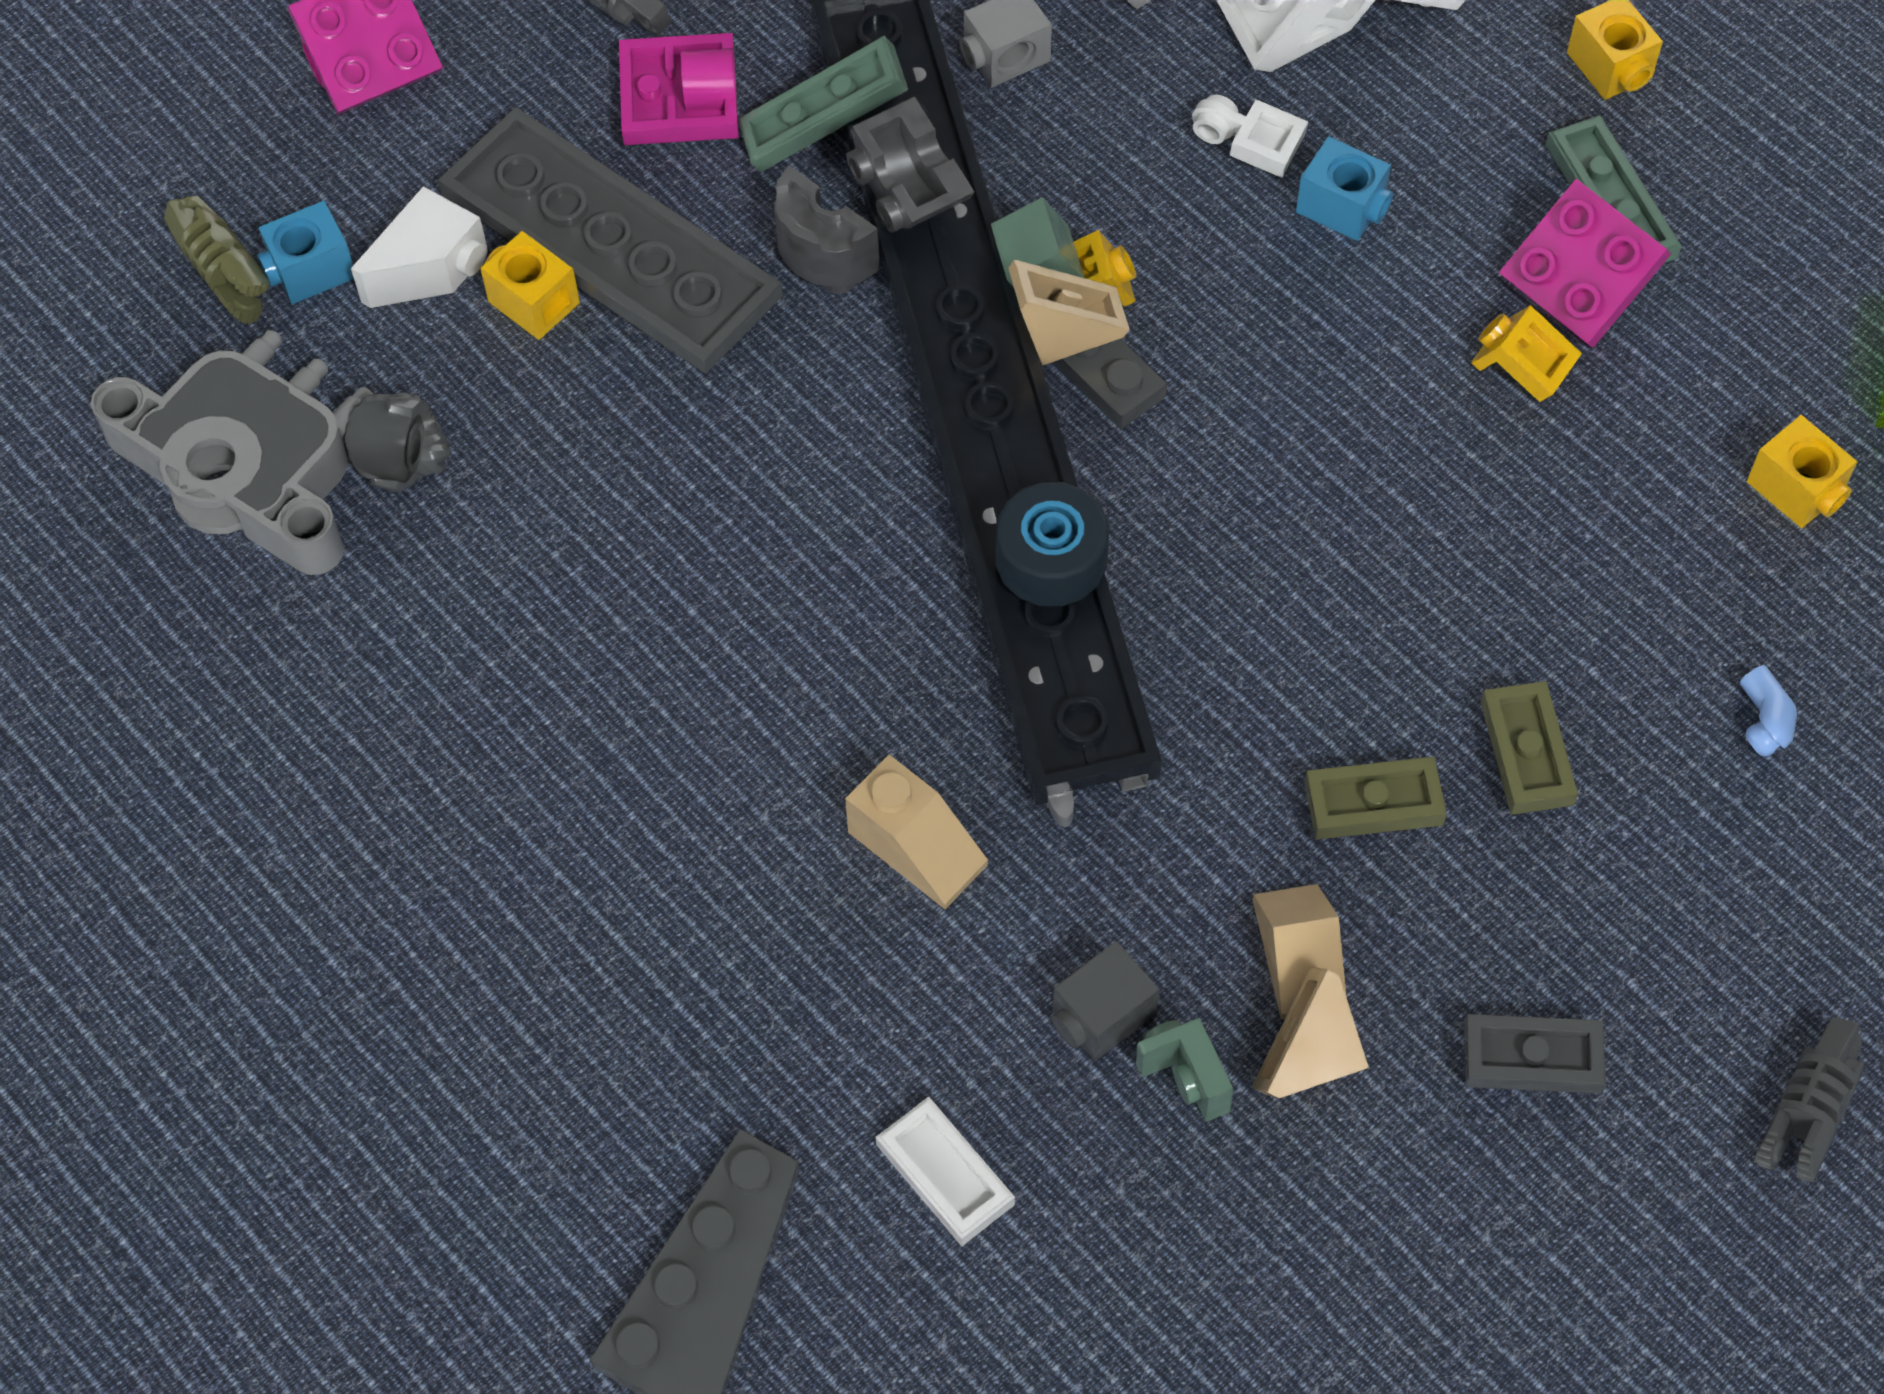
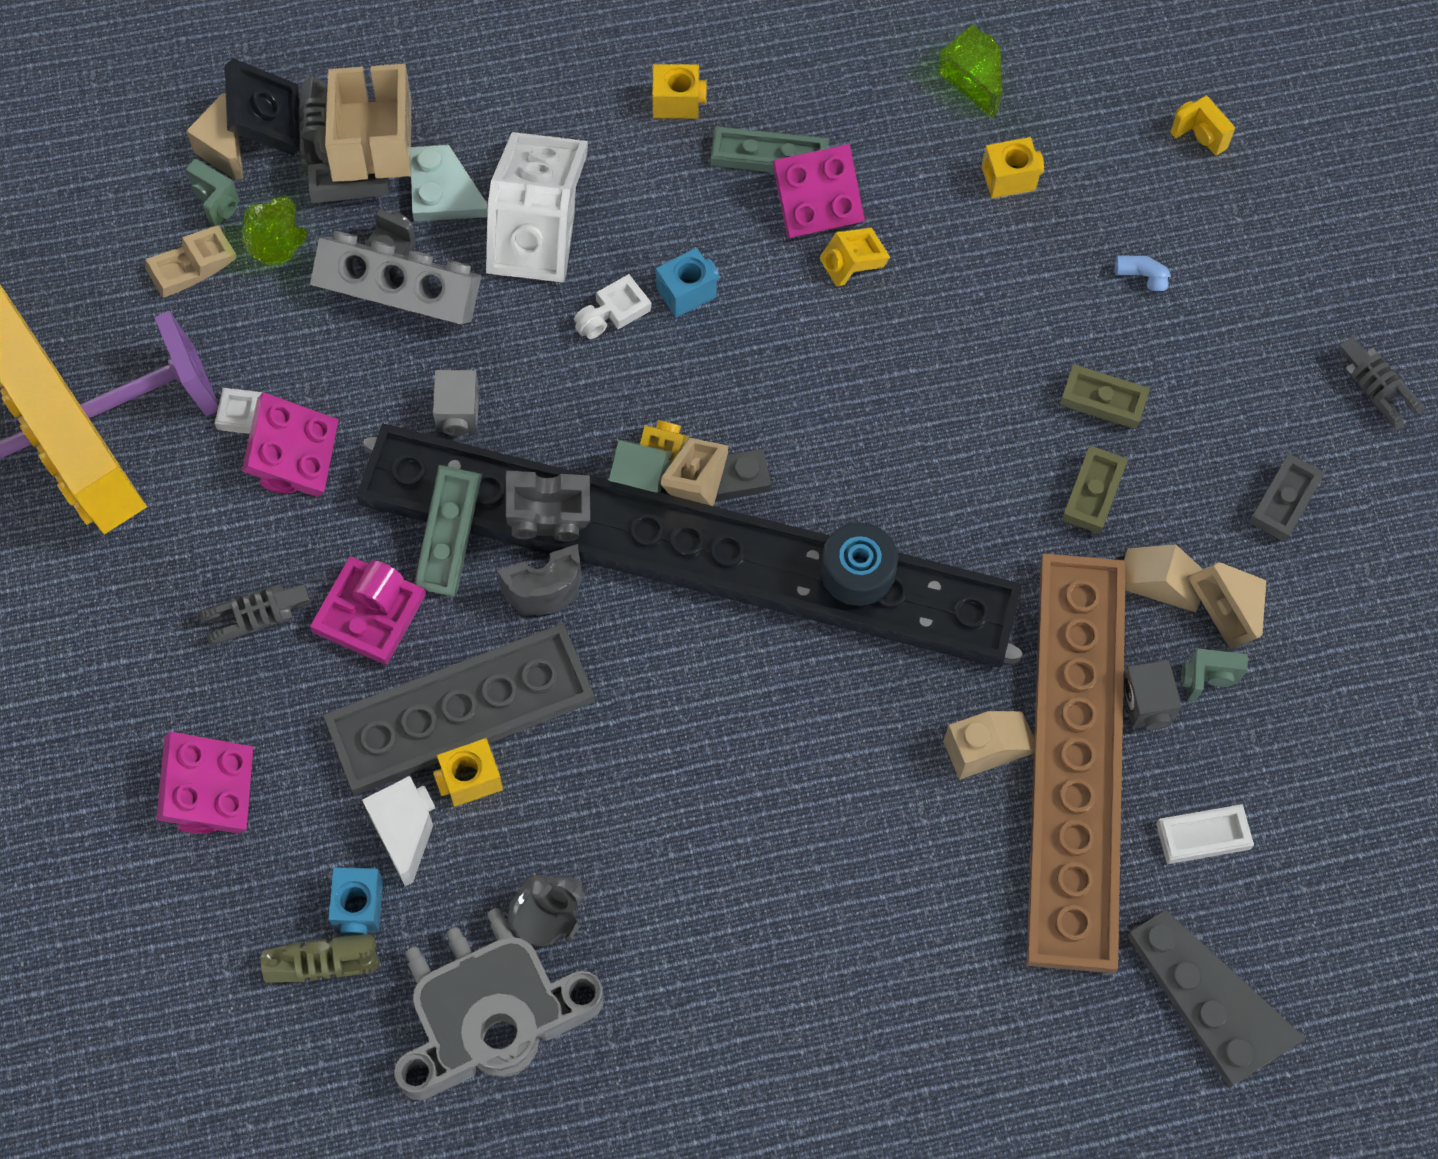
camera: 65 degrees left, 5 degrees up
(950, 954) = (1077, 765): none -> medium nougat plate

